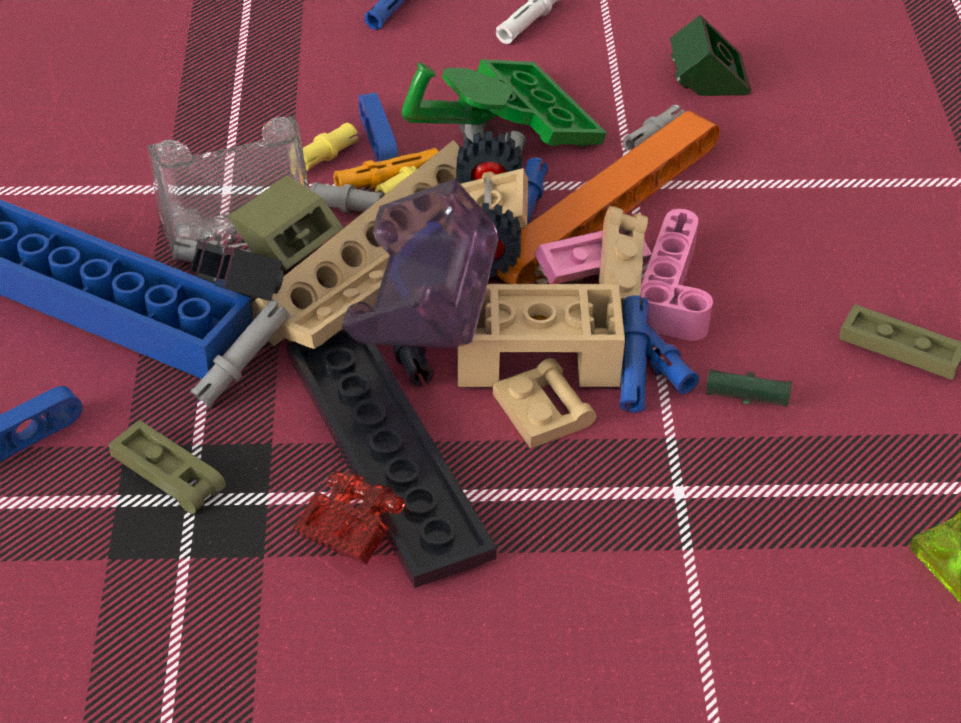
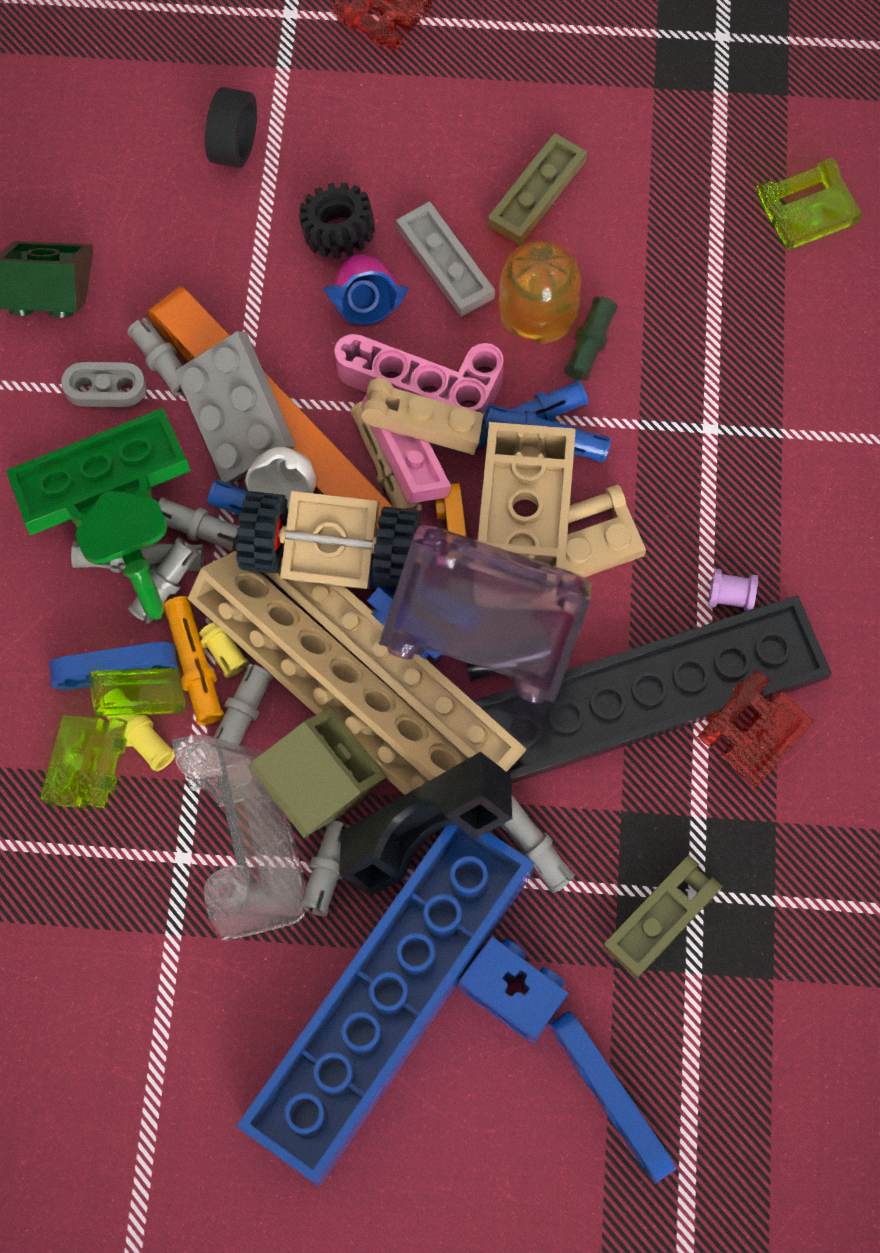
camera: 80 degrees left, 25 degrees up
(103, 366) = (487, 986): none -> blue brick
(310, 120) = (75, 761): none -> clear neon green plate
(353, 135) = (136, 692): none -> clear neon green tile
(441, 139) = (168, 574): none -> light grey pin
(497, 495) = (733, 590): none -> lavender bush
(548, 181) = (281, 472): none -> white hair
(607, 156) = (233, 405): none -> light grey plate
(621, 104) = (105, 382): none -> light grey plate
(750, 228) = (365, 283): none -> blue hat
(783, 335) = (539, 291): none -> clear yellow tile
(802, 285) = (445, 259): none -> light grey plate
(816, 211) = (334, 204): none -> black tyre
(882, 114) = (230, 127): none -> black tyre

